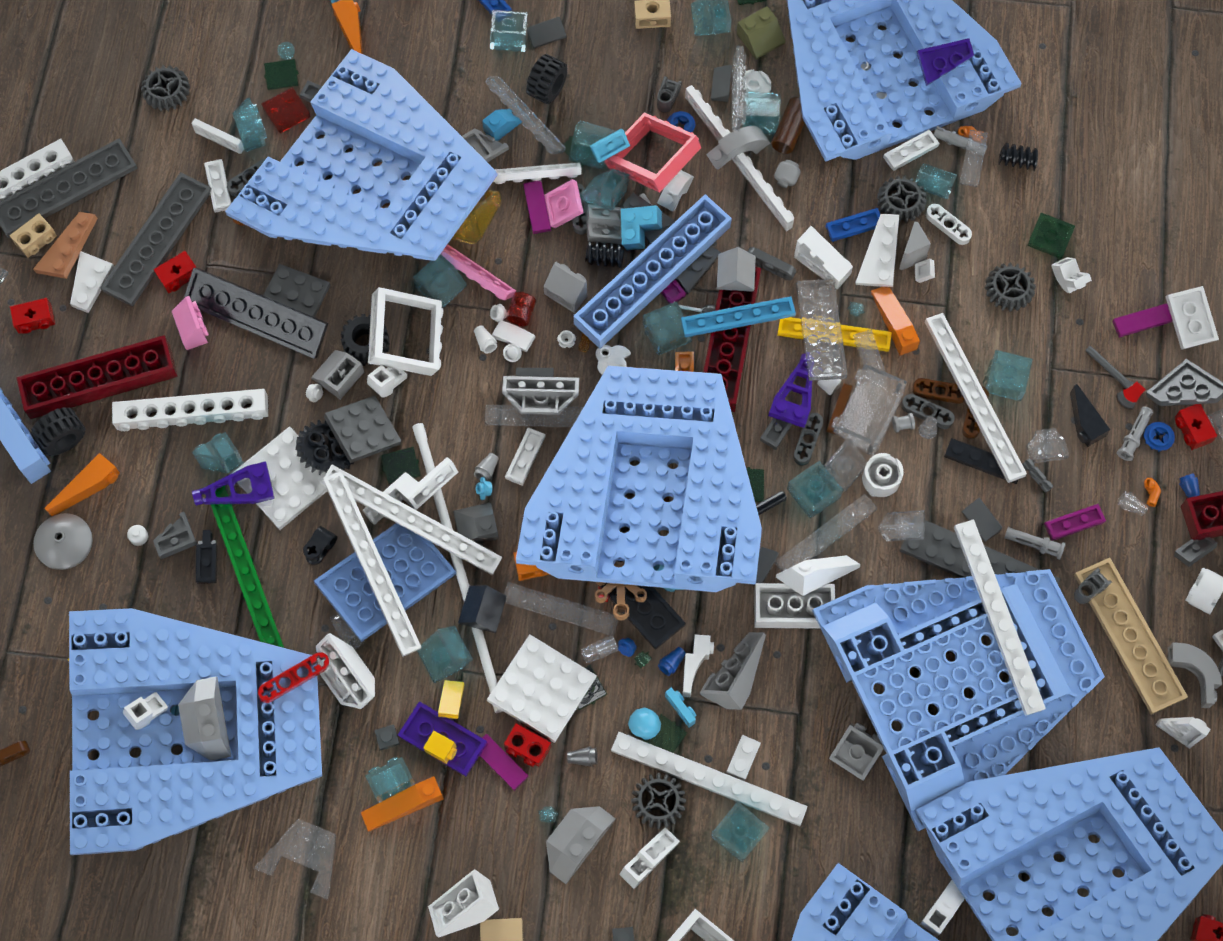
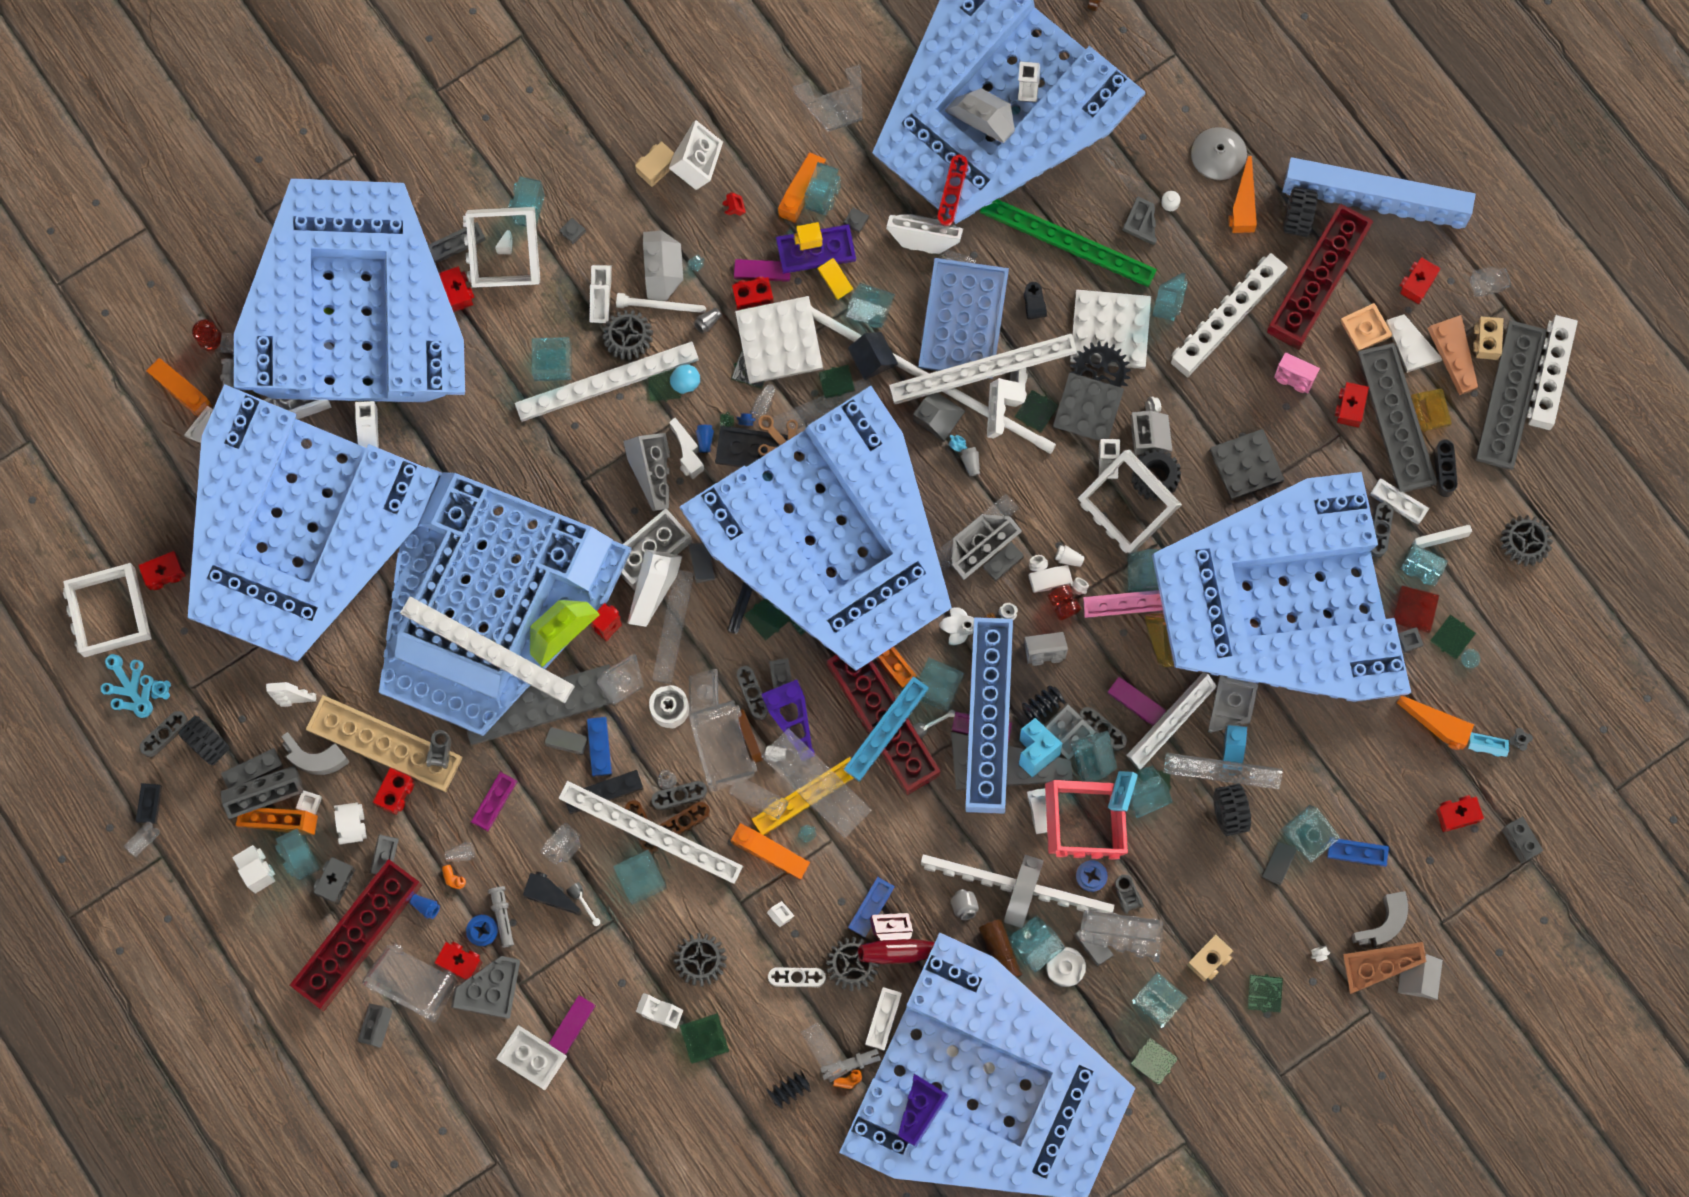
camera: 140 degrees right, 5 degrees up
(106, 317) = (1366, 327): none -> light nougat plate
(124, 221) = (1436, 409): none -> clear yellow plate
(160, 184) = (1447, 459): none -> black beam
(206, 559) = (1104, 225): black hinge -> none
(256, 313) = (1259, 423): plate -> none
(260, 483) = (1119, 304): dark purple plate -> none
(372, 564) = (978, 310): white plate -> none
(470, 837) = (735, 204): none -> red tile
(525, 456) = (952, 496): white tile -> none
(528, 615) = (836, 381): none -> clear green piece
(563, 203) = (1115, 716): bright pink plate -> none
(636, 835) = (624, 301): none -> white piece
(676, 700) = (675, 411): medium azure plate -> none
(697, 66) = (1123, 933): none -> clear wedge
(736, 270) = (922, 768): light grey slope -> none
(738, 92) = (1063, 932): clear plate -> none
(743, 757) = (595, 416): white plate -> none
(760, 32) = (1103, 1020): olive slope -> none
(773, 264) = (908, 812): dark grey beam -> none
(814, 489) = (710, 650): clear light blue brick -> none
(822, 257) = (868, 851): white wedge -> none
(857, 750) = (518, 482): light grey plate -> none
(859, 184) = (894, 941): none -> dark red plate
(878, 573) = (607, 622): none -> red brick
(881, 254) = (826, 896): white wing -> none
(903, 422) = (689, 767): light grey bush -> none
(916, 248) = (802, 921): light grey slope -> none
(923, 592) = (558, 628): none -> lime wedge
(936, 180) = (841, 1009): clear light blue slope -> none
(959, 496) = (599, 746): none -> blue plate
(1037, 475) = (552, 813): dark grey axle -> none
(1044, 545) = (502, 759): light grey pin -> none
(1064, 406) = (576, 892): none -> hinge
(1132, 390) = (531, 954): piece -> none
(1153, 594) = (389, 790): none -> red brick

